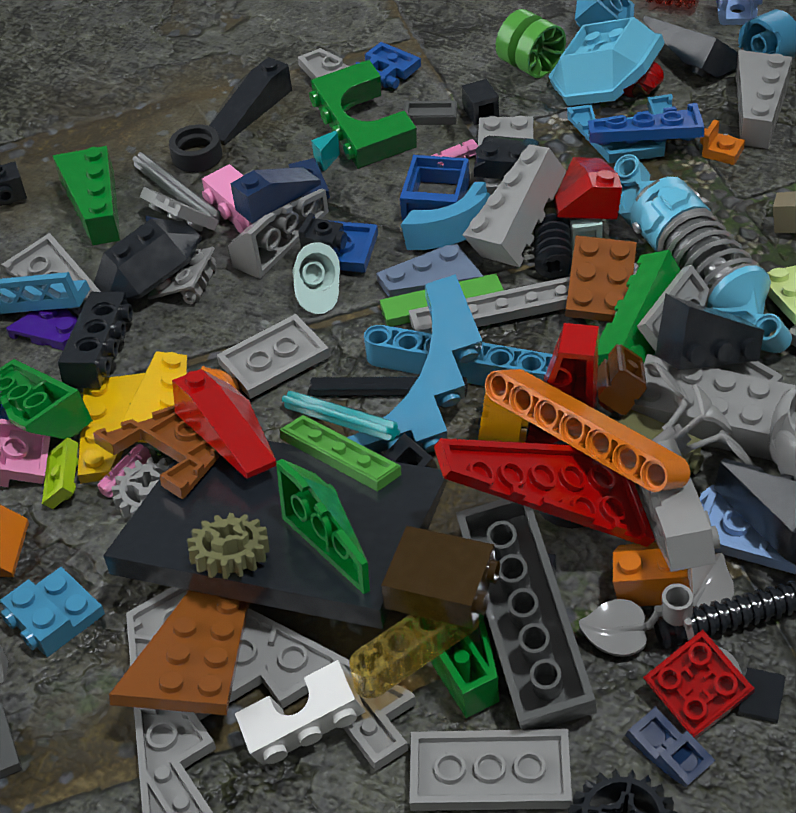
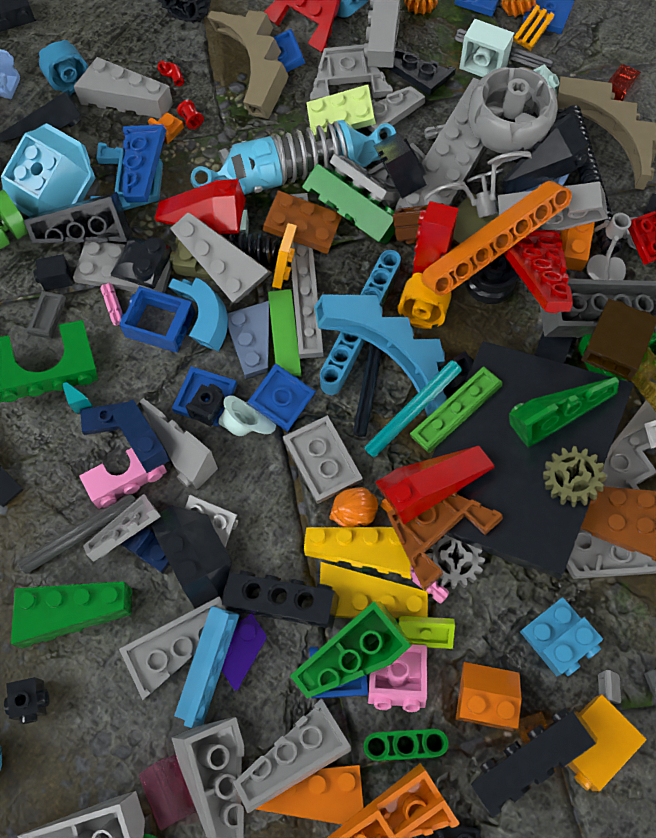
camera: 85 degrees left, 20 degrees up
(192, 136) = (16, 498): black tyre -> none
(349, 307) = (281, 397): none -> blue plate
(539, 263) = (285, 255): none -> light orange wing
(548, 103) = (89, 220): none -> black wedge
(752, 156) = (188, 112): none -> red bush

